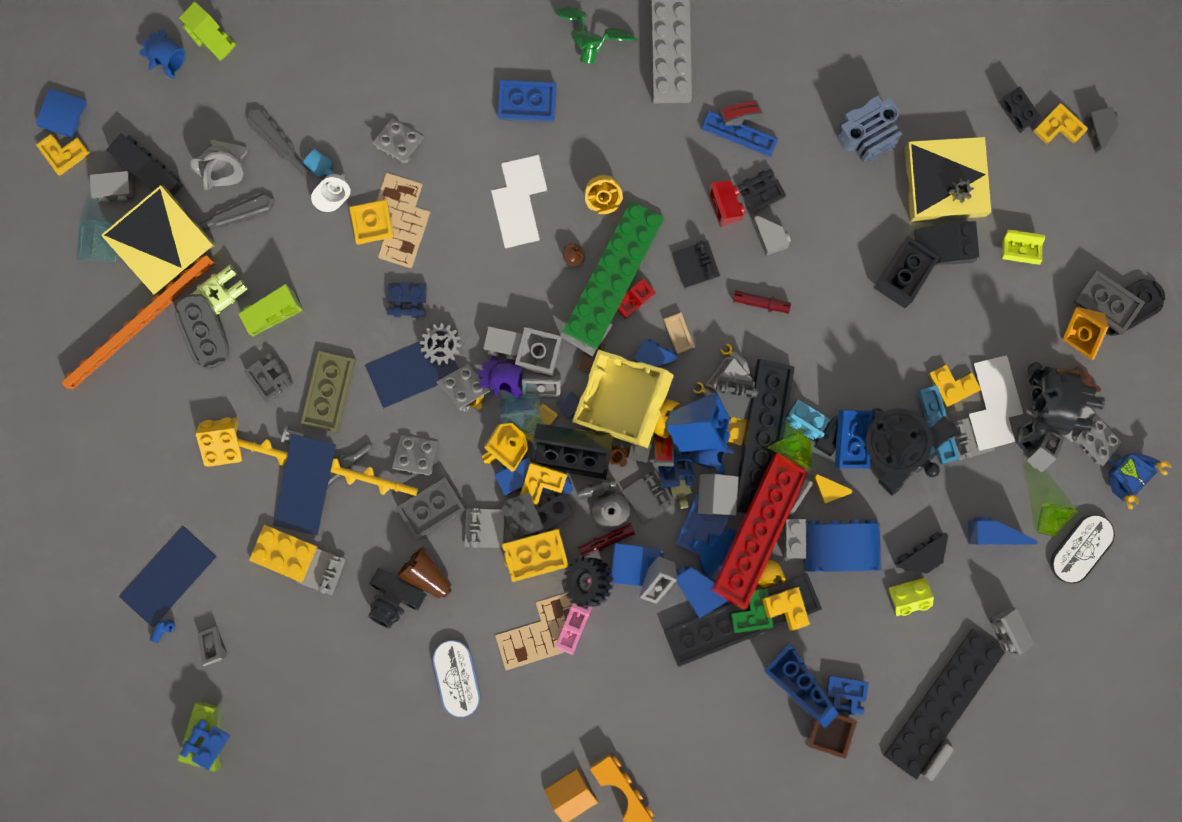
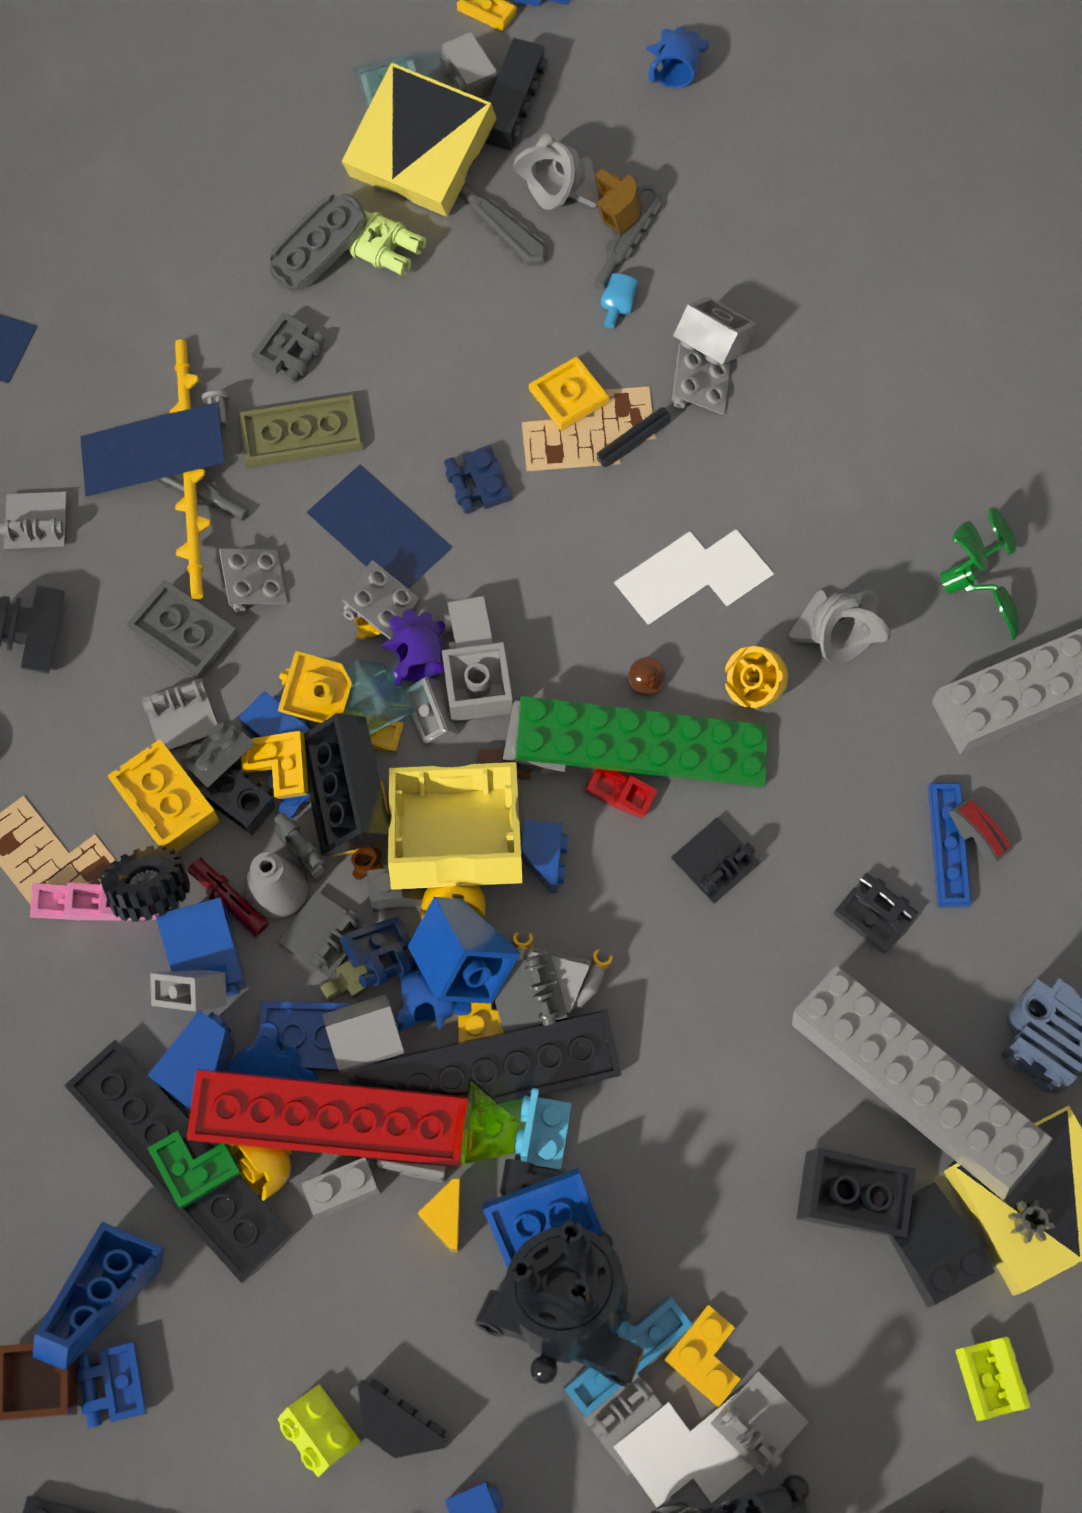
camera: 65 degrees right, 15 degrees down
(133, 326) = (298, 165): orange plate -> none
(206, 31) = (731, 84): lime wedge -> none
(219, 441) = (170, 319): yellow bracket -> none
(257, 133) = (620, 200): none -> pearl gold brick
(270, 310) = (384, 312): lime wedge -> none
(283, 553) = (42, 461): yellow plate -> none
(330, 193) = (584, 322): white piece -> none
(373, 118) = (714, 330): none -> brick
(418, 196) = (633, 437): none -> black axle
(425, 574) = (77, 656): reddish brown cone -> none
(433, 350) = (436, 558): light grey gear -> none
(527, 100) = (844, 524): blue plate -> none
(568, 405) = (416, 757): dark blue tile -> none
(589, 133) = (841, 625): none -> light grey helmet
(663, 451) = (396, 921): slope -> none
(678, 333) = (596, 878): tan tile -> none
(725, 202) = (831, 861): red slope -> none
(762, 302) = (704, 996): dark red pin -> none
(771, 235) = (812, 954): light grey slope -> none
(791, 604) = (229, 1220): yellow plate -> none
(843, 546) = (359, 1278): blue cylinder -> none
(866, 212) = (921, 1082): none -> light grey brick
(997, 372) = (759, 1423): none -> light grey hinge

